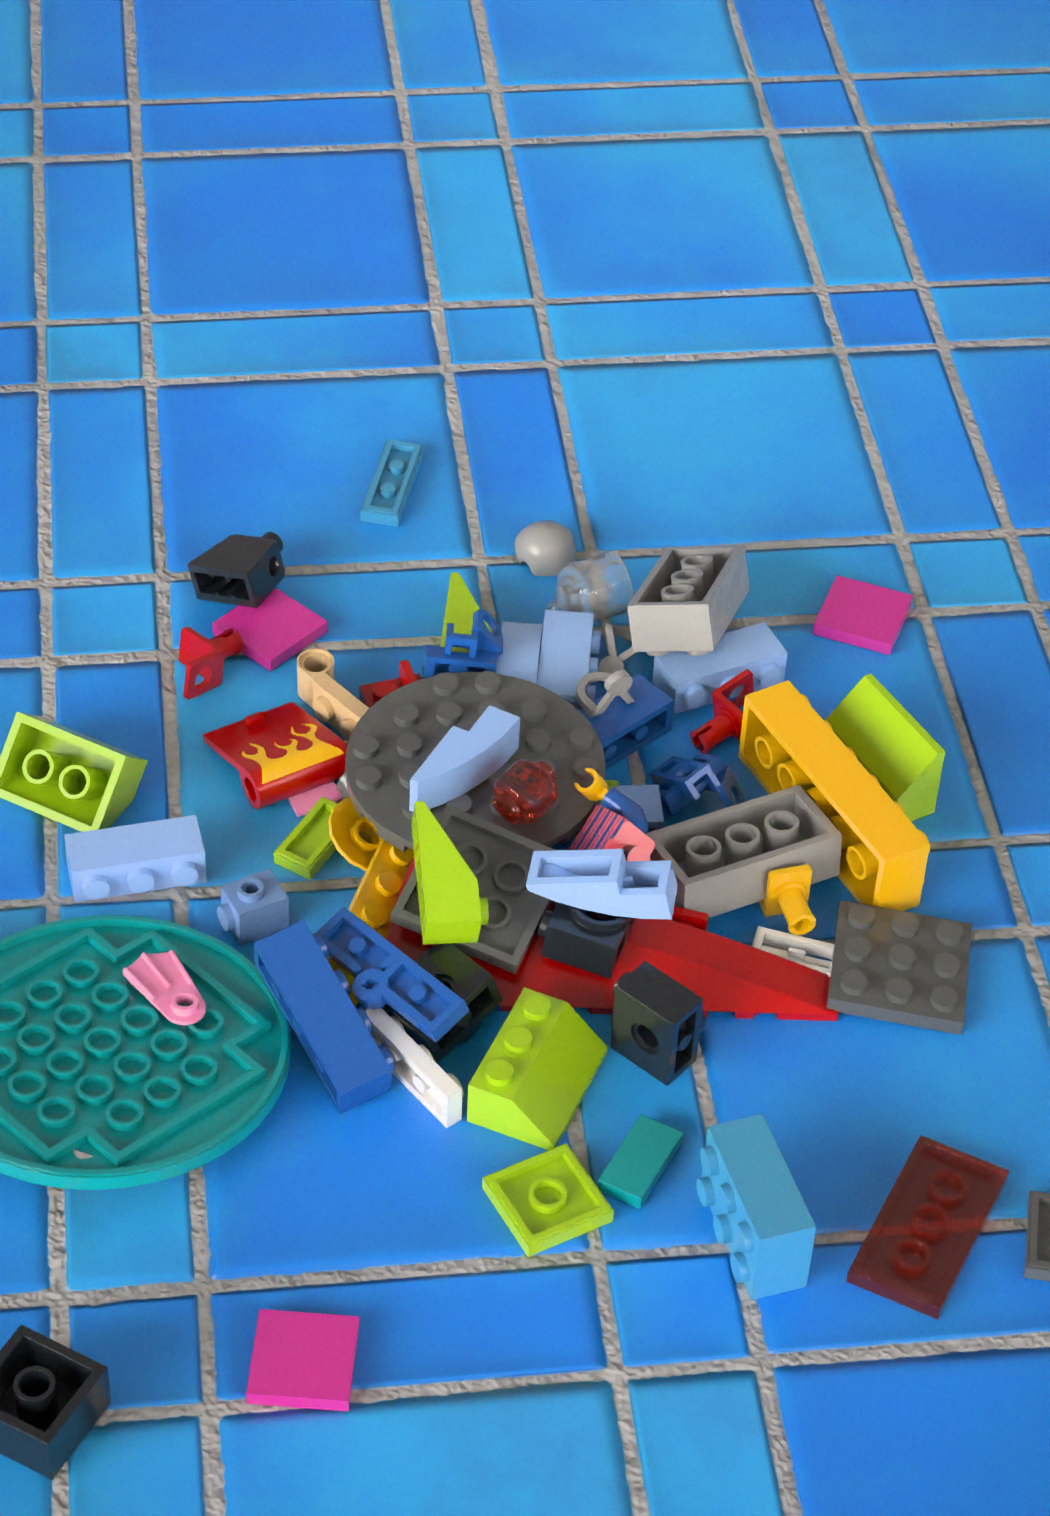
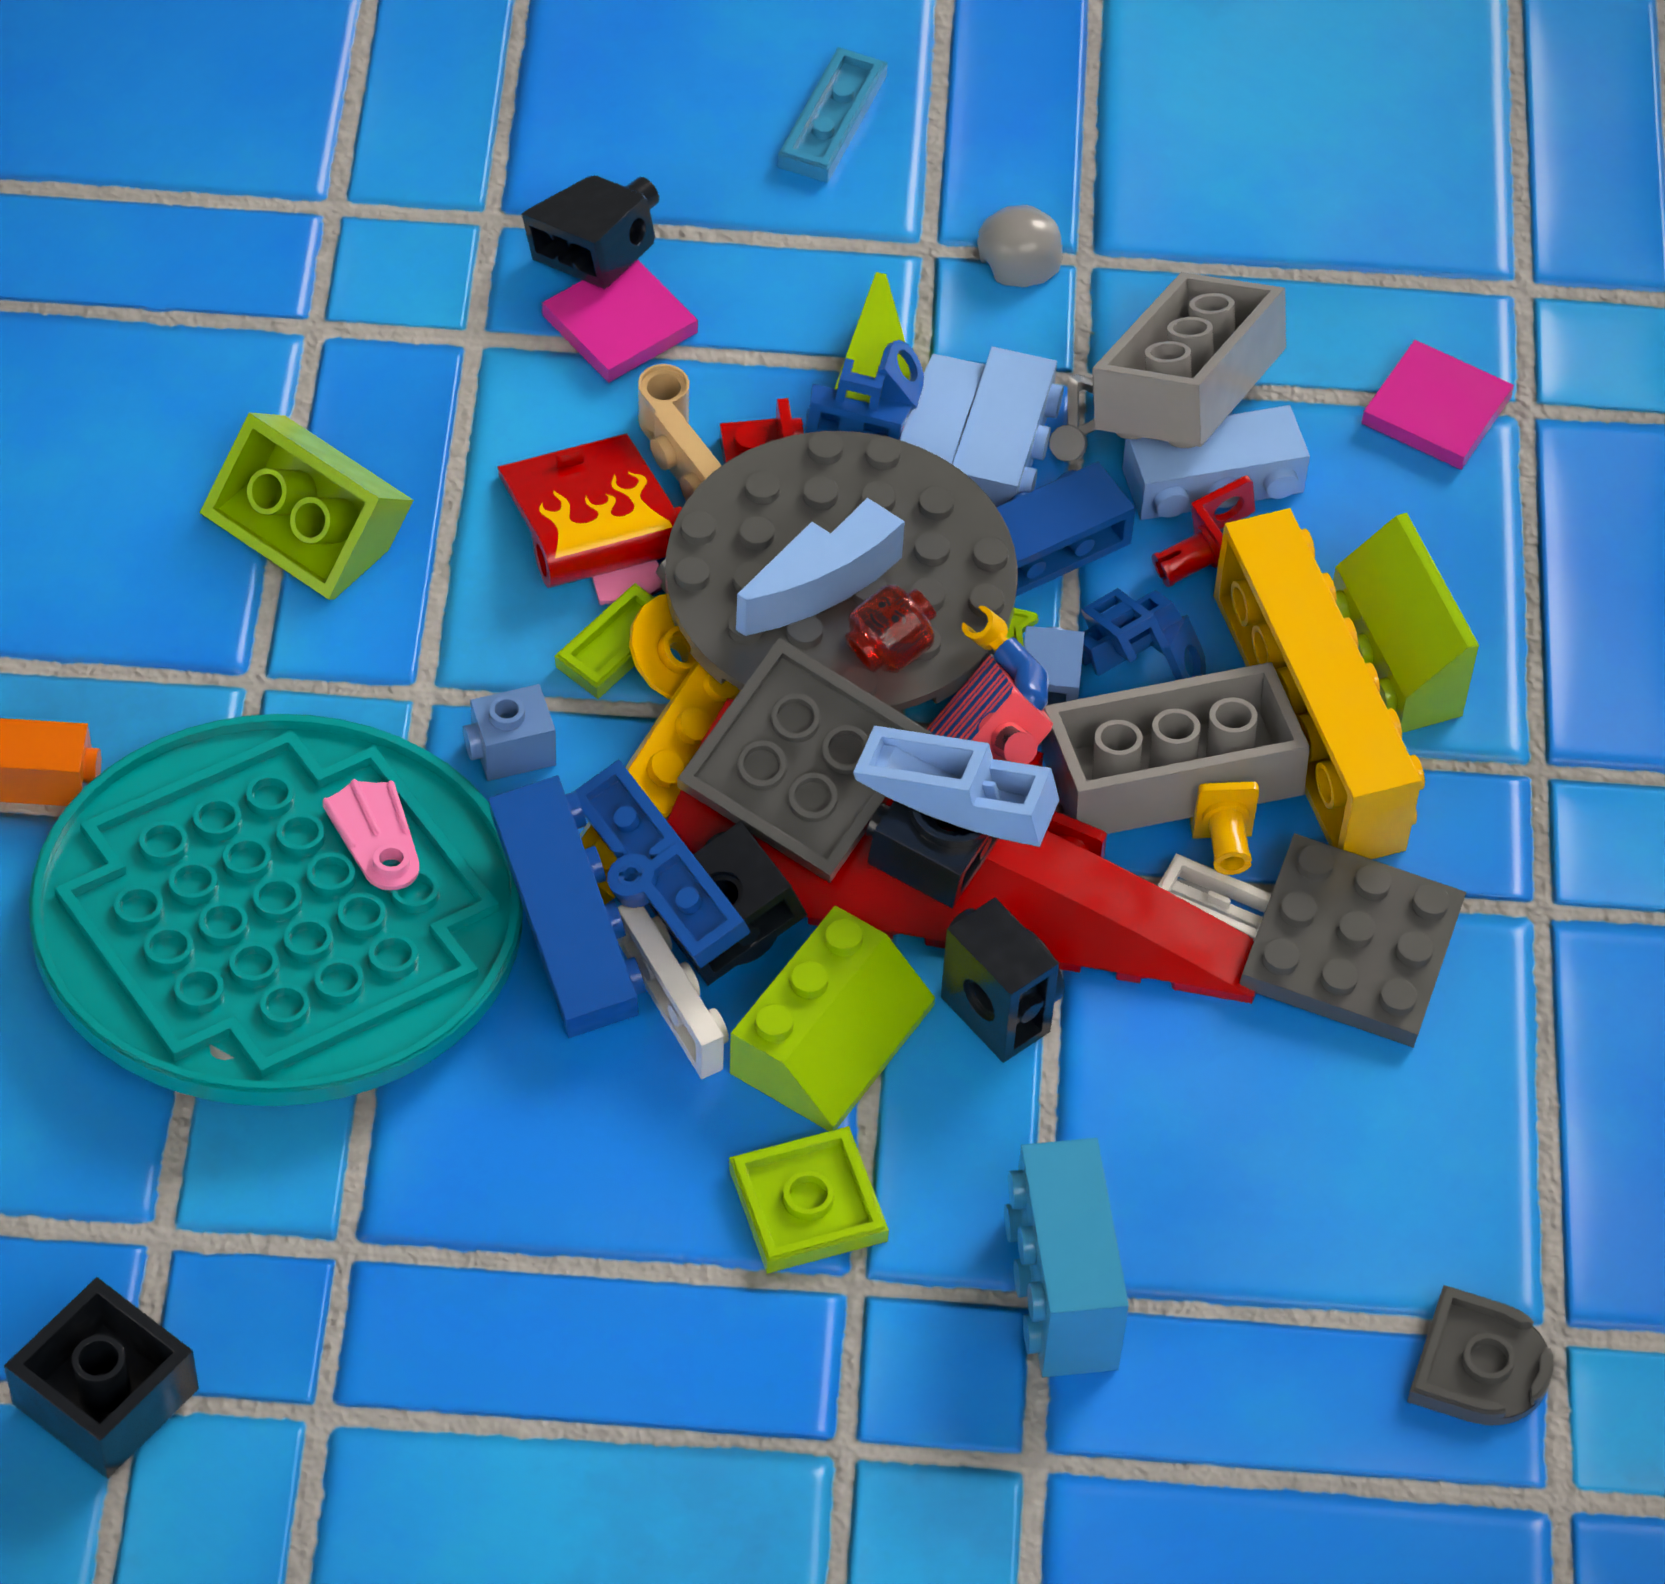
camera: 10 degrees right, 10 degrees up
(135, 858) = (371, 640): light blue brick -> none
(206, 658) = (523, 356): red bracket -> none
(303, 1360) = (449, 1370): dark pink tile -> none
(445, 885) = (752, 757): lime slope -> none
(594, 586) = (1065, 320): clear piece -> none
(615, 684) = (1052, 483): light grey piece -> none
(640, 1161) = (940, 1165): teal tile -> none
(928, 1227) = (1297, 1313): clear red tile -> none

